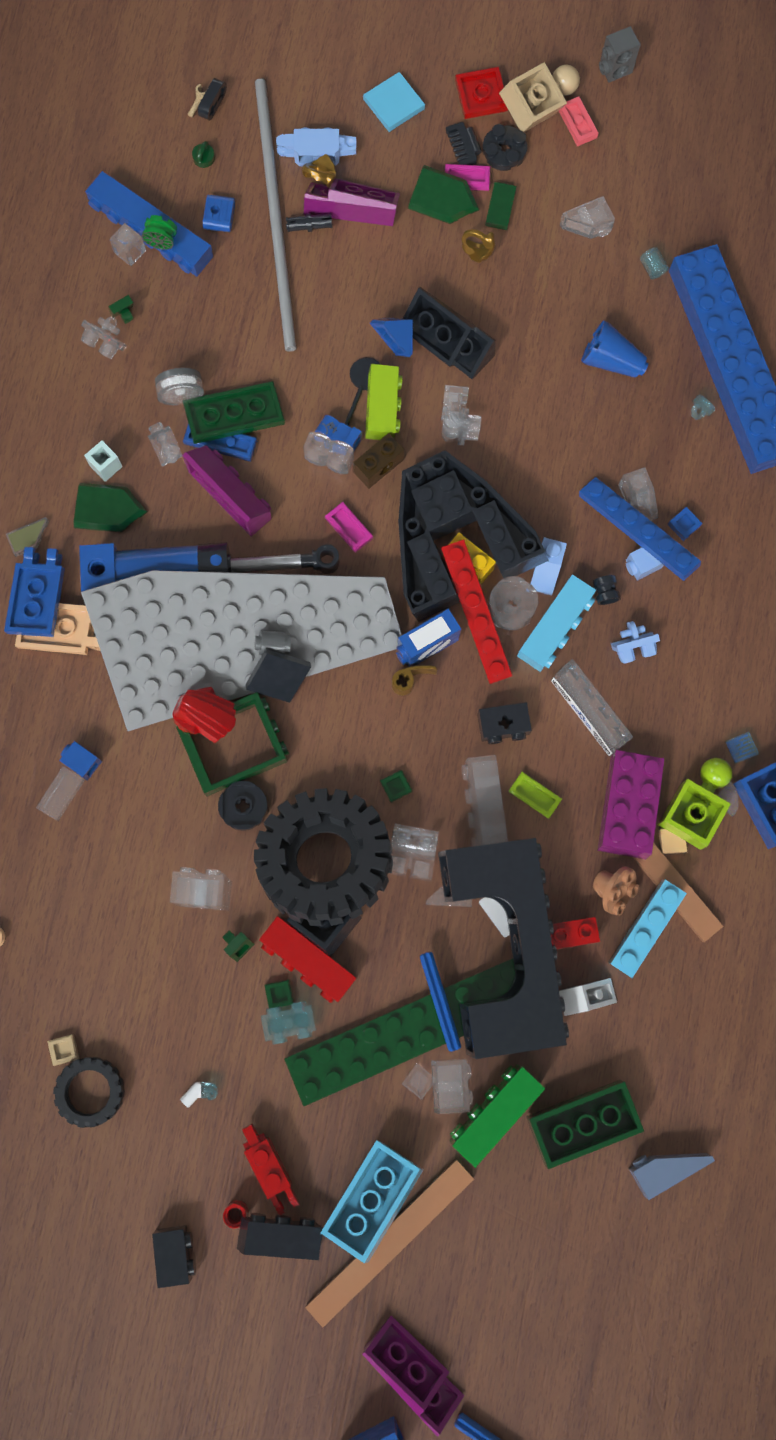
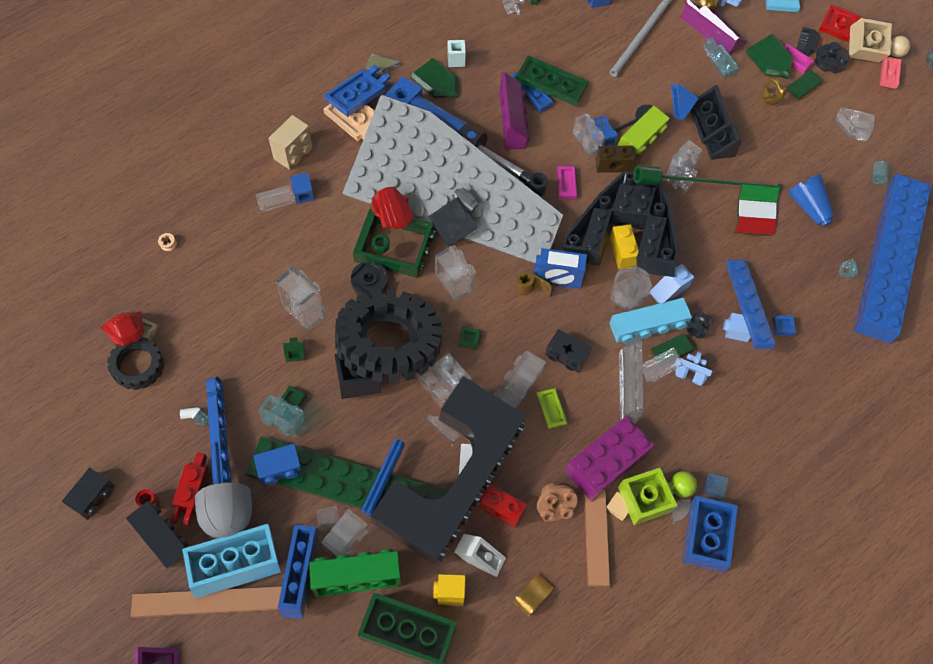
camera: 40 degrees right, 15 degrees down
(22, 719) = (290, 142): none -> tan brick
(44, 1069) = (124, 328): none -> red hair
(164, 444) = (496, 65): clear hips -> none
(178, 385) = (531, 43): clear piece -> none
(226, 761) = (380, 244): none -> dark green tile
(307, 959) = (327, 391): red brick -> none
(309, 222) = (679, 21): black pin -> none
(325, 1163) = (224, 506): none -> piece
(327, 730) = (454, 272): none -> clear brick
(332, 1076) = (278, 464): none -> blue brick
(389, 240) = (720, 58): none -> clear light blue plate
(443, 1157) = (297, 572): none -> blue brick
(476, 611) = (604, 275): red plate -> none
(559, 403) = (755, 202): none -> flag
(592, 1056) = (450, 590): none -> yellow piece
(599, 637) = (680, 343): none -> dark green tile
(606, 665) = (661, 365): none -> clear tile
(639, 492) = (767, 286): clear slope -> none
(647, 928) = (556, 541): medium azure brick -> none
(665, 993) = (533, 595): none -> pearl gold panel

